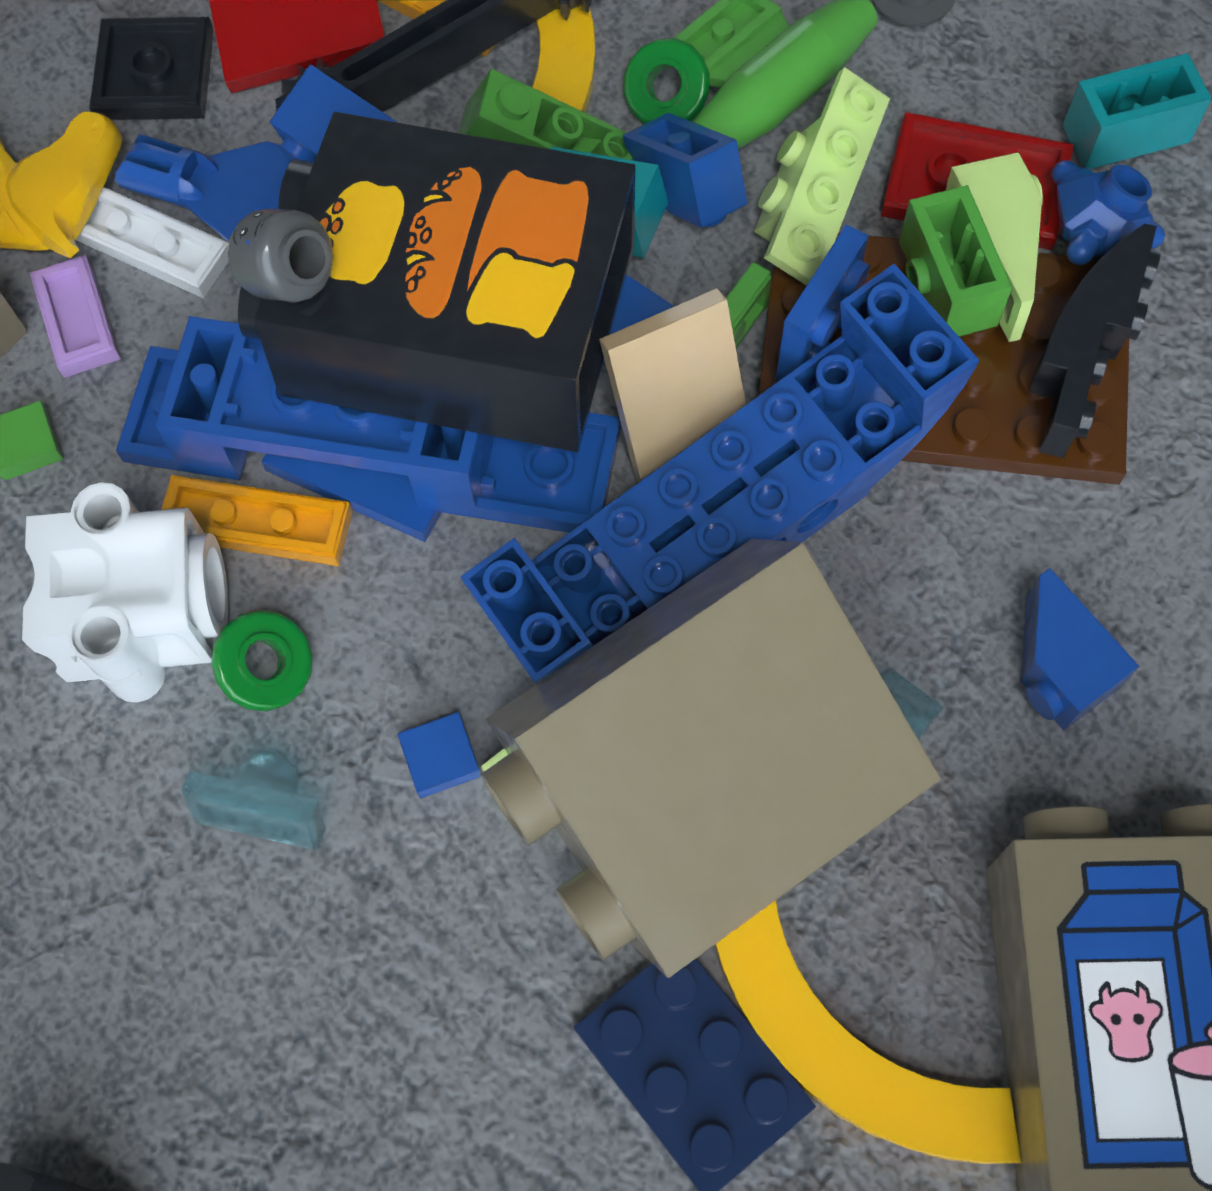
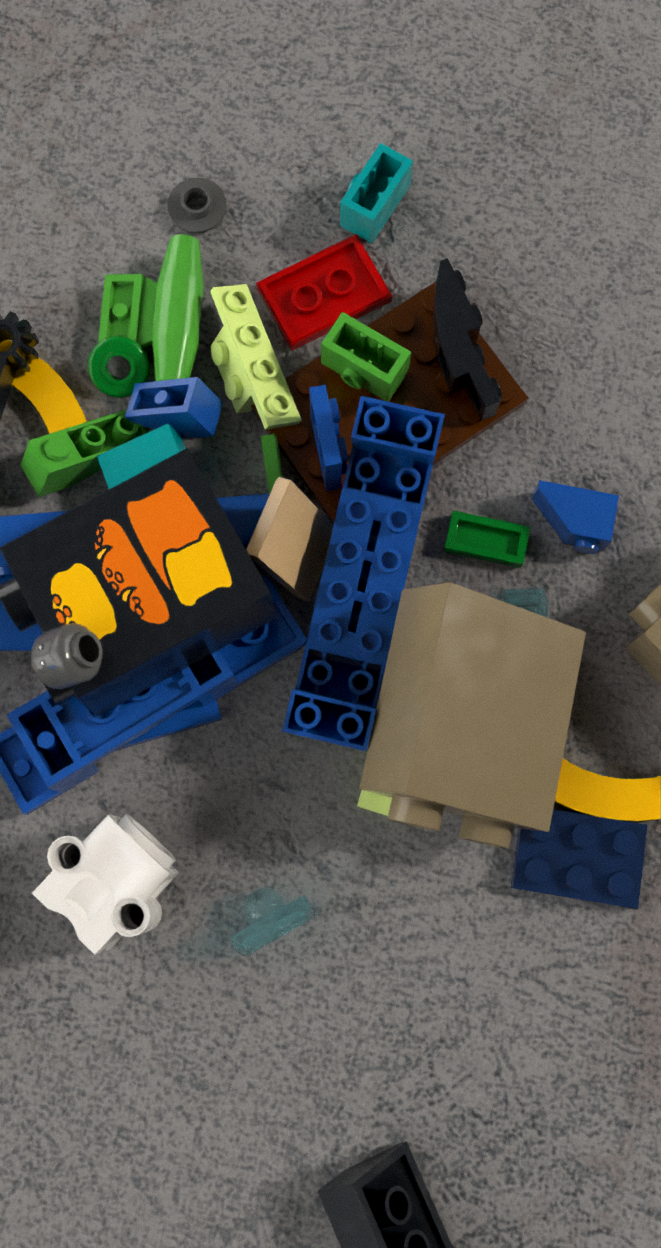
camera: 45 degrees left, 10 degrees up
(265, 519) = (126, 784): light orange tile -> none
(292, 654) = (222, 851): green piece -> none
(439, 755) = (332, 818): blue tile -> none
(924, 595) = (487, 539): none -> green tile
(1011, 211) = (368, 304): yellowish green slope -> none
(1101, 208) = (405, 265): blue rock -> none

